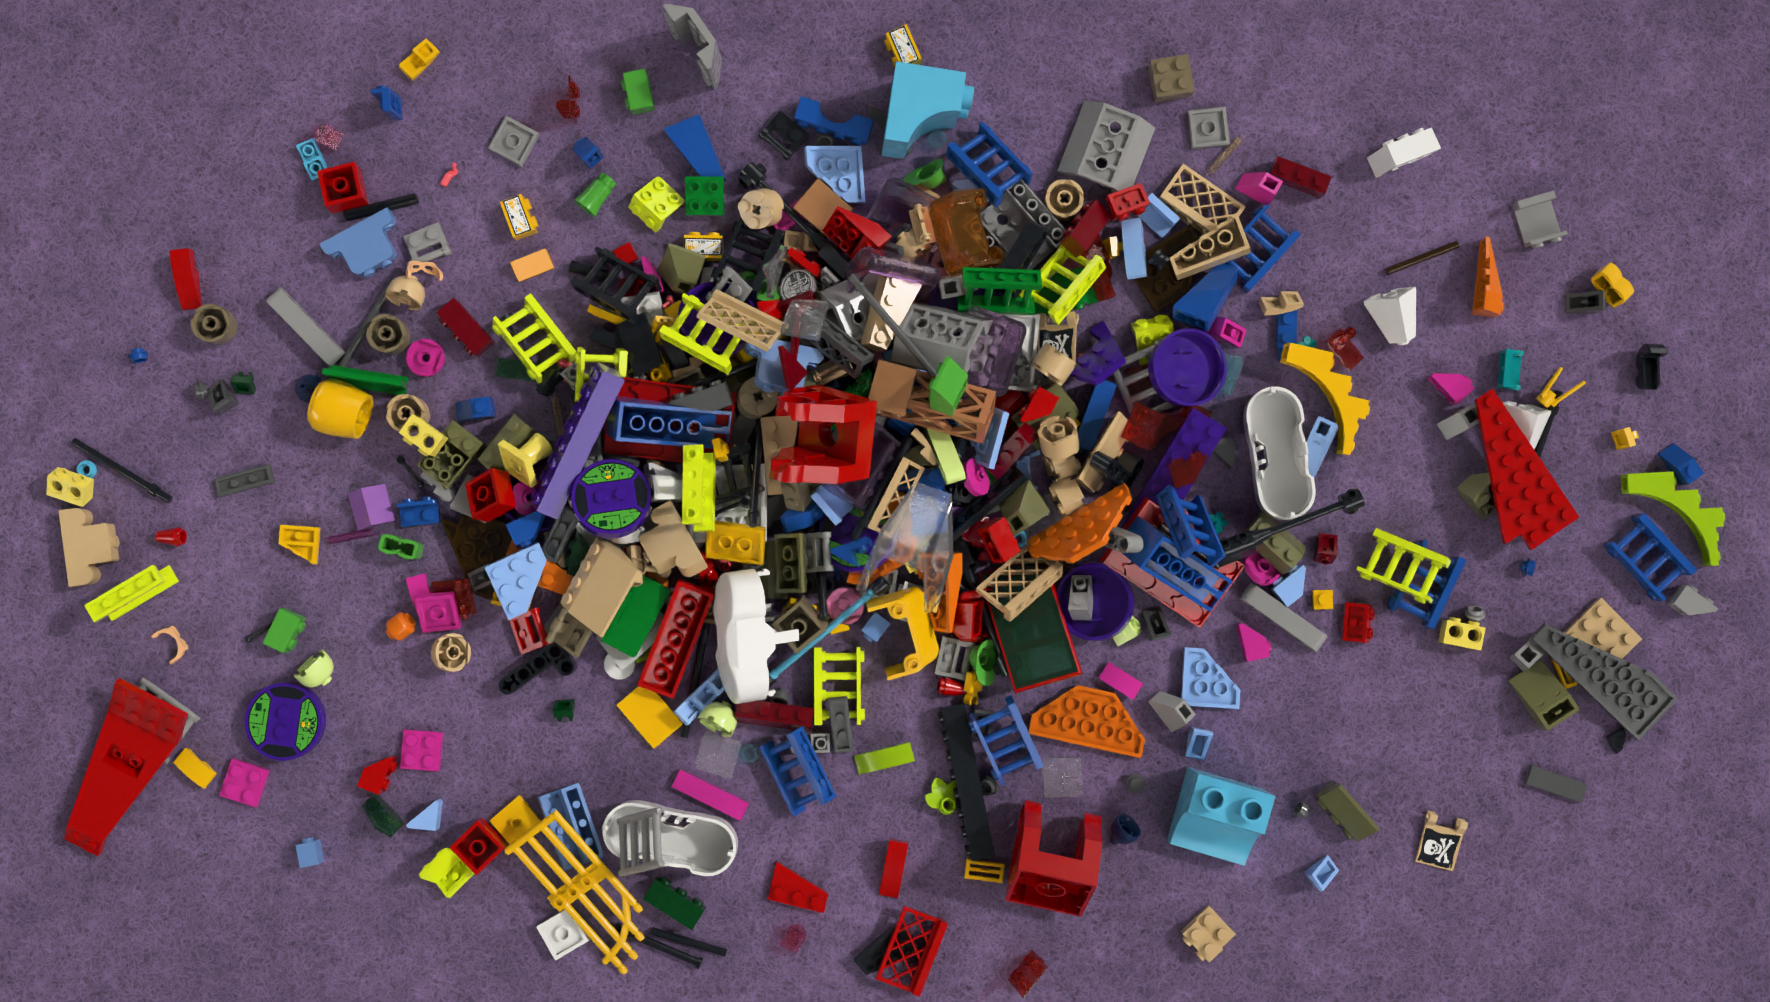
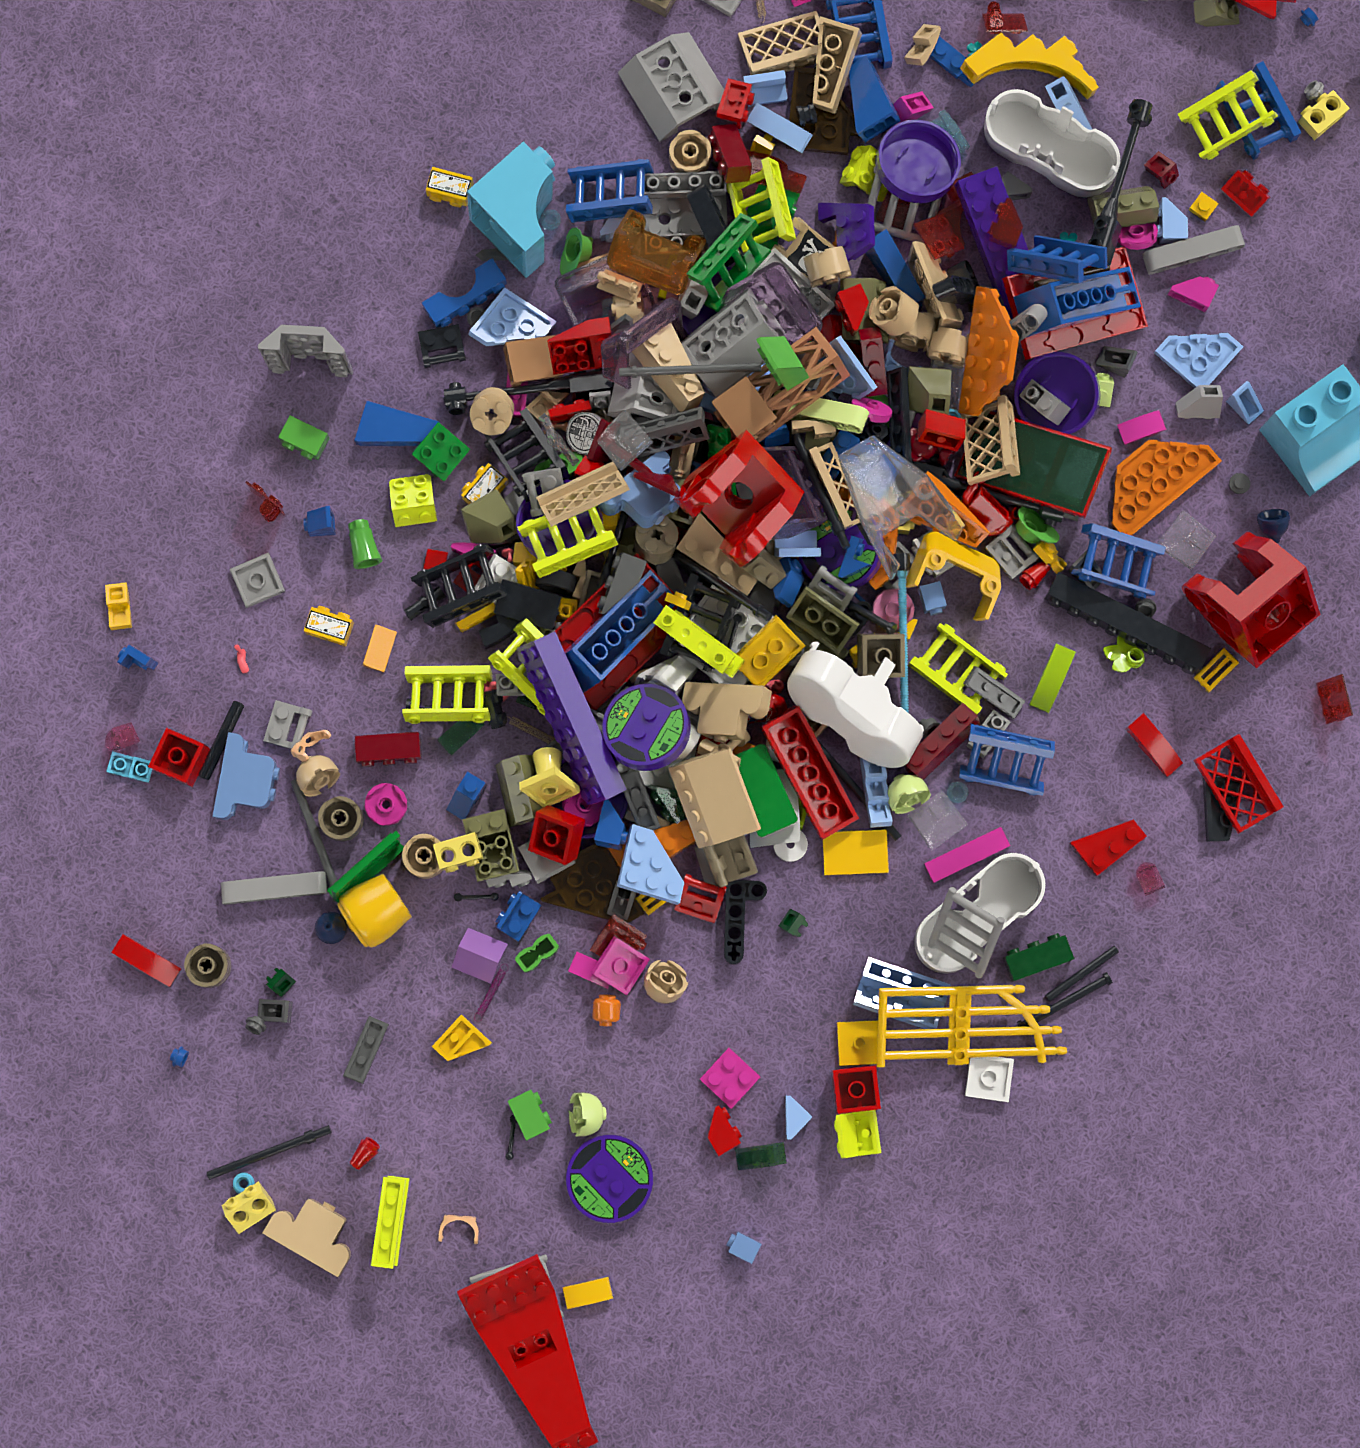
camera: 55 degrees left, 5 degrees down
(244, 782) = (635, 1258): dark pink plate -> none

